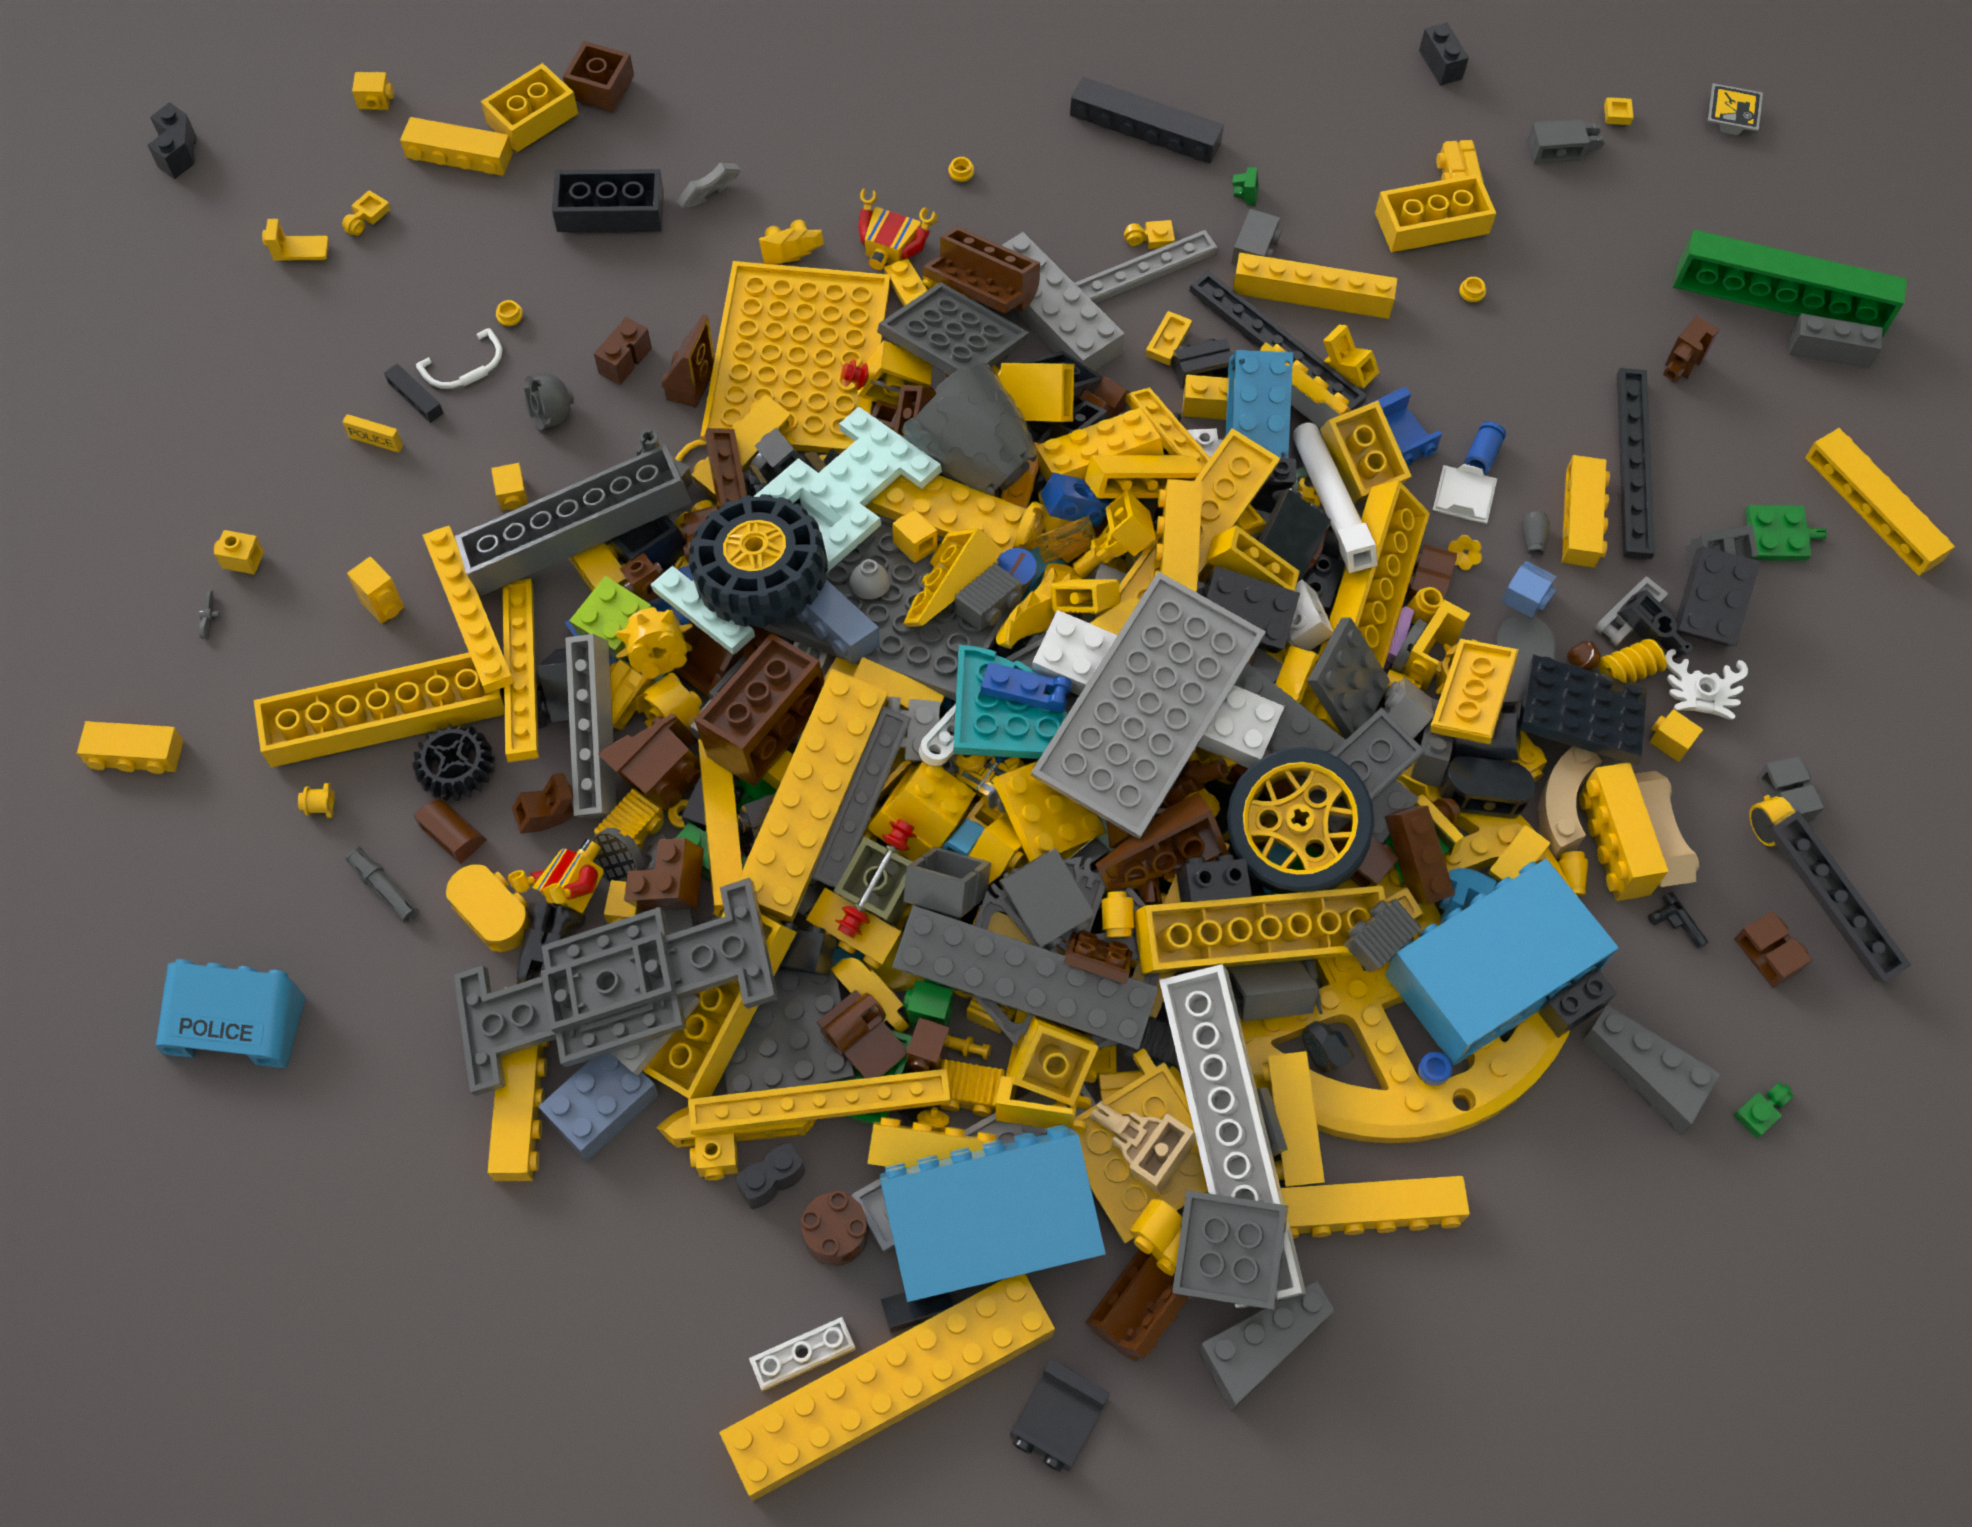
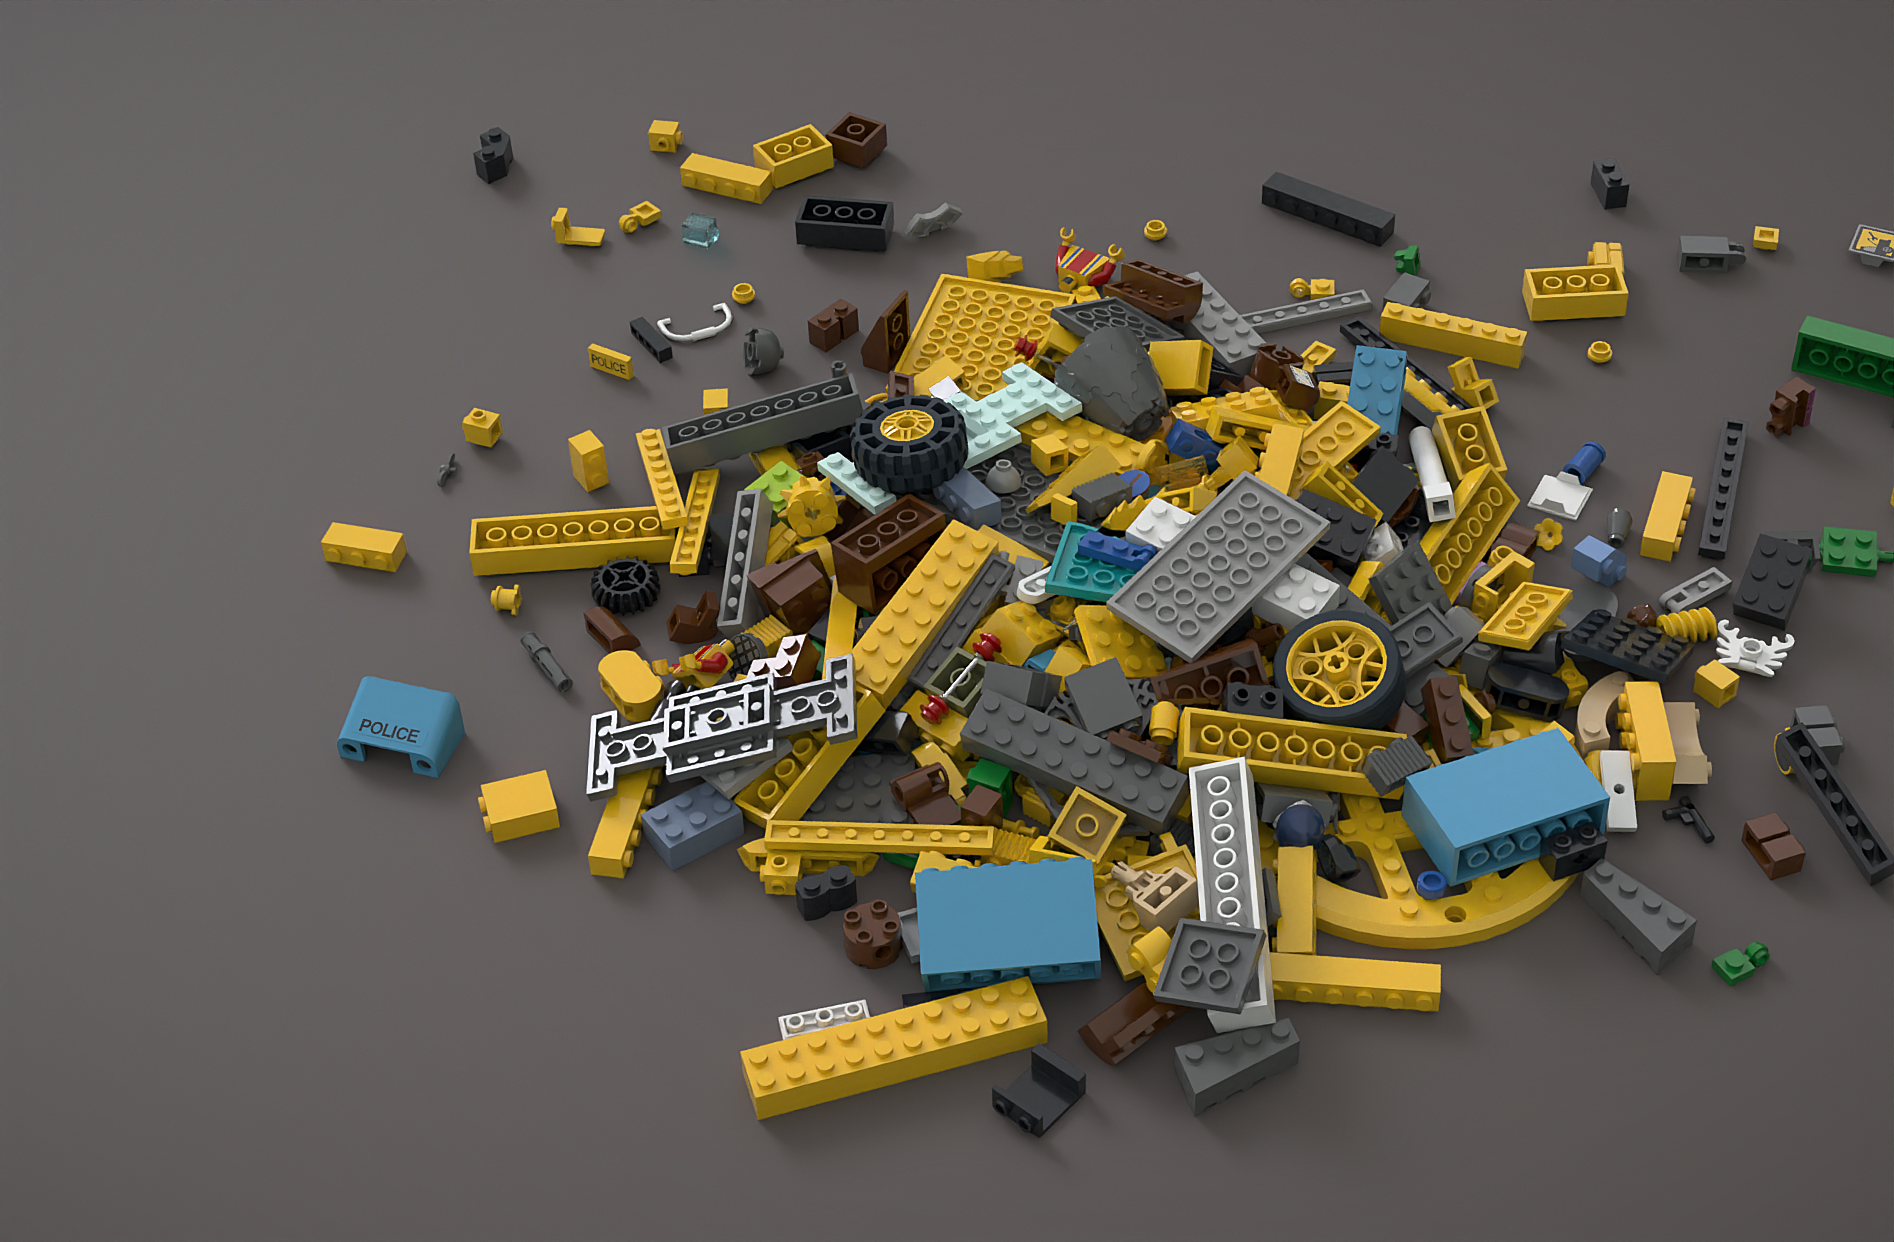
camera: 15 degrees right, 20 degrees down
(390, 1104) = (518, 806): none -> yellow brick
(440, 227) = (700, 230): none -> clear light blue brick
(950, 624) = (1063, 509): none -> yellow tile
(1134, 359) = (1269, 363): none -> reddish brown brick
(1165, 390) = (1297, 388): none -> reddish brown brick
(1286, 1027) = (1299, 826): none -> dark blue hair
(1408, 432) = (1513, 445): blue panel -> none
(1601, 883) = (1617, 776): none -> white tile
(1653, 622) = (1707, 591): black piece -> none

